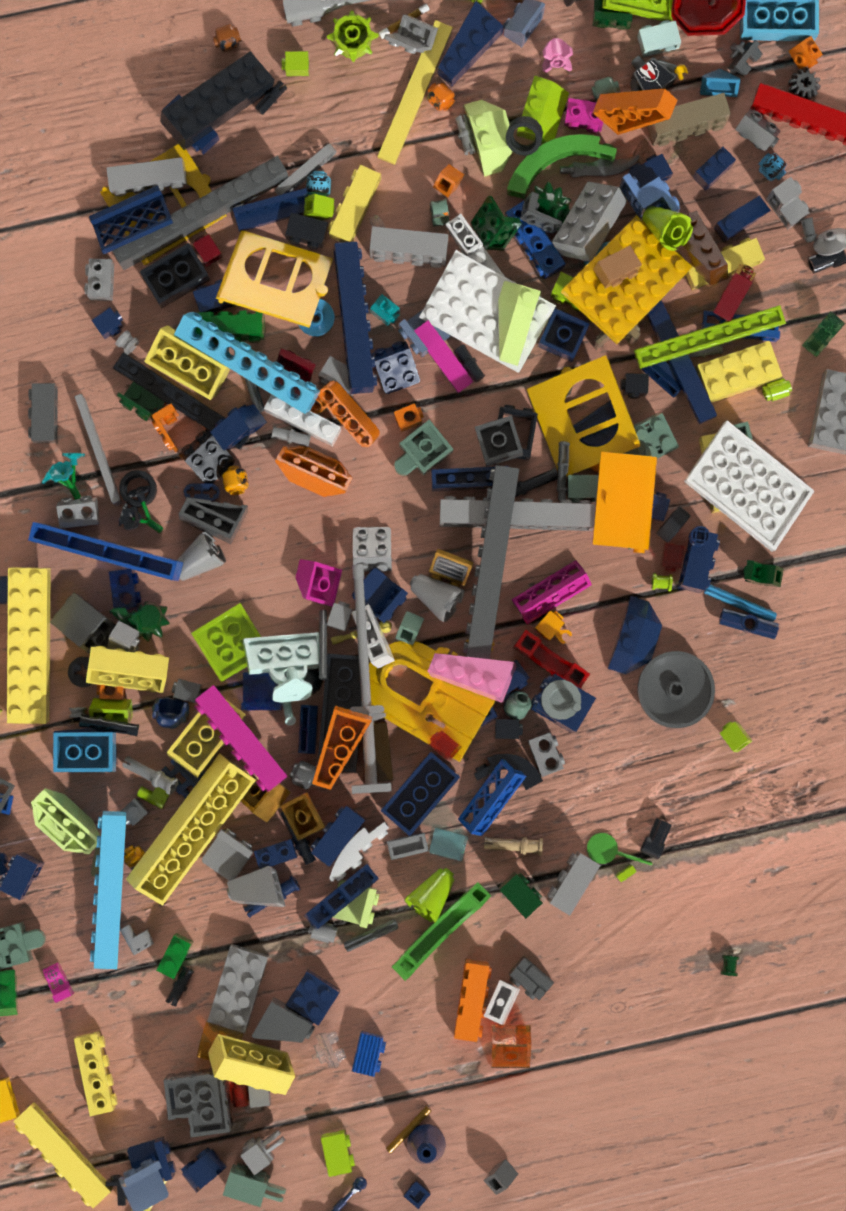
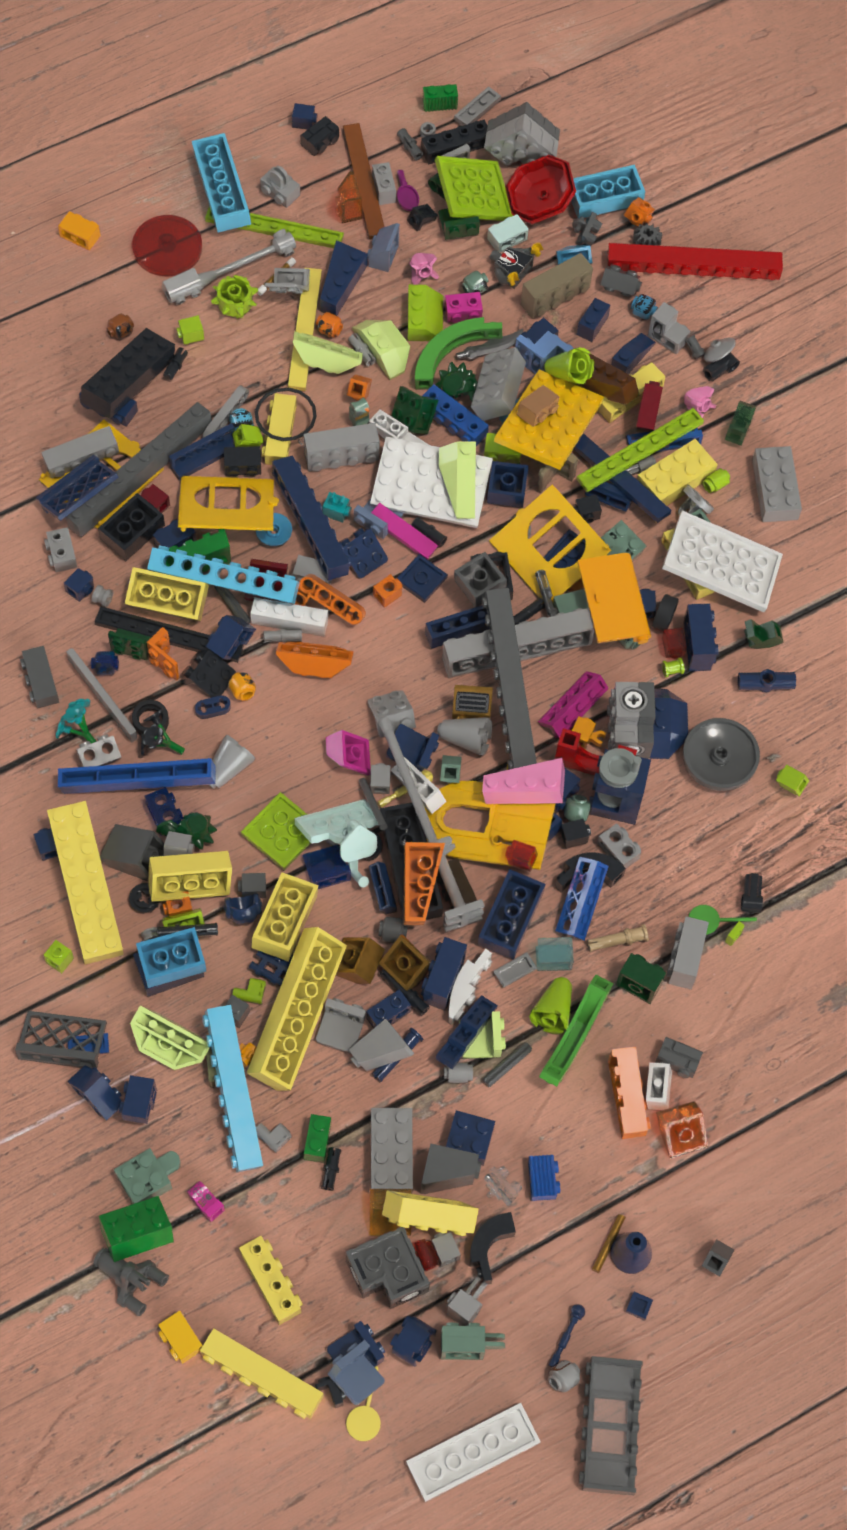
camera: 15 degrees left, 20 degrees down
(111, 416) = (105, 663): none -> clear blue head
(157, 779) = (248, 972): light grey pin -> none
(215, 518) = (238, 722): dark grey wedge -> none
(240, 738) = (321, 904): dark pink brick -> none
(307, 1088) = (491, 1231): none -> black arch
(337, 1153) = (544, 1286): lime brick -> none
(369, 221) = (281, 390): none -> black piece
(422, 452) = (411, 612): sand green brick -> none
(426, 131) = (325, 354): none -> yellowish green wedge
(447, 411) = (422, 578): none -> dark blue tile
(532, 124) = (411, 344): black tyre -> none
(533, 217) = (451, 392): dark grey bracket -> none
(599, 633) = (632, 717): none -> piece
(634, 109) = (506, 284): orange wedge -> none
(696, 535) = (693, 611): dark blue wheel -> none
(740, 603) = (748, 666): dark azure axle -> none
(746, 409) = (695, 502): none -> light grey tile
(790, 295) = (699, 399): none -> bright pink brick

